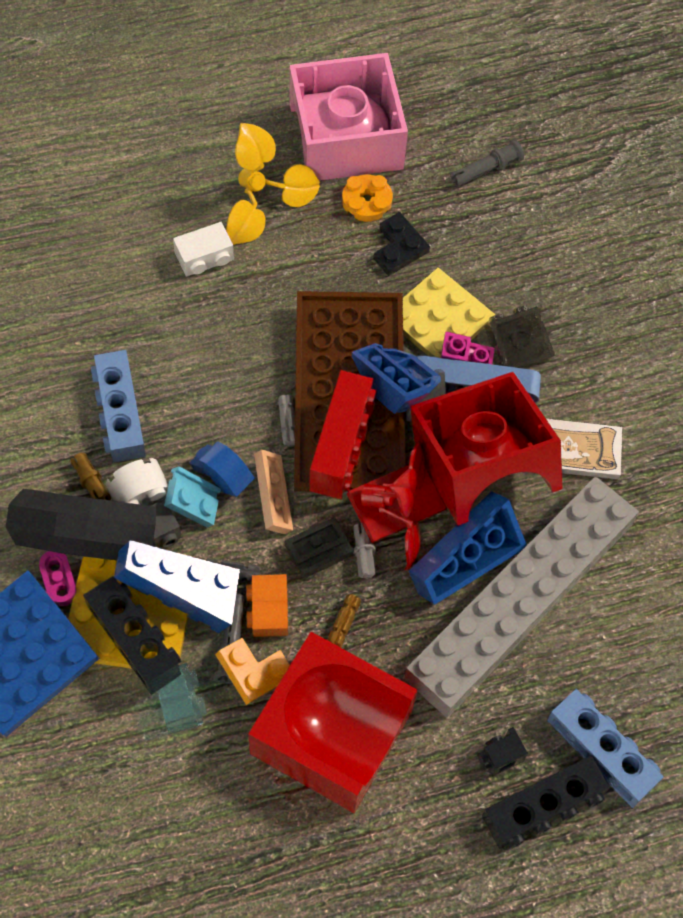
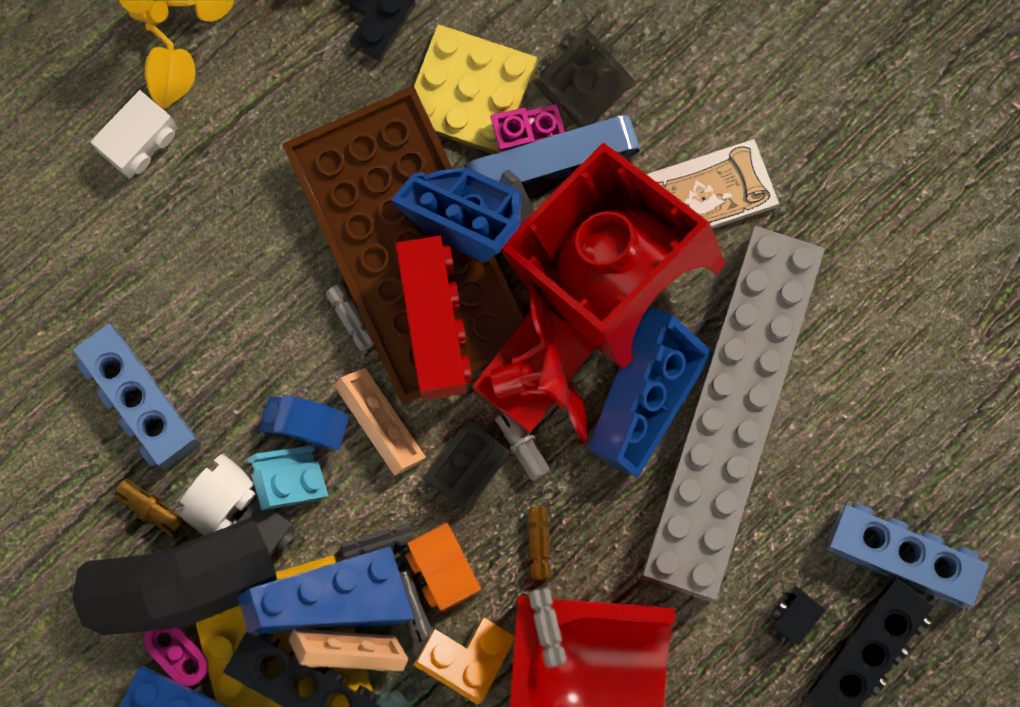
camera: 20 degrees left, 15 degrees up
(175, 623) = (347, 650): none -> light nougat plate
(320, 659) = (547, 627): none -> light grey axle

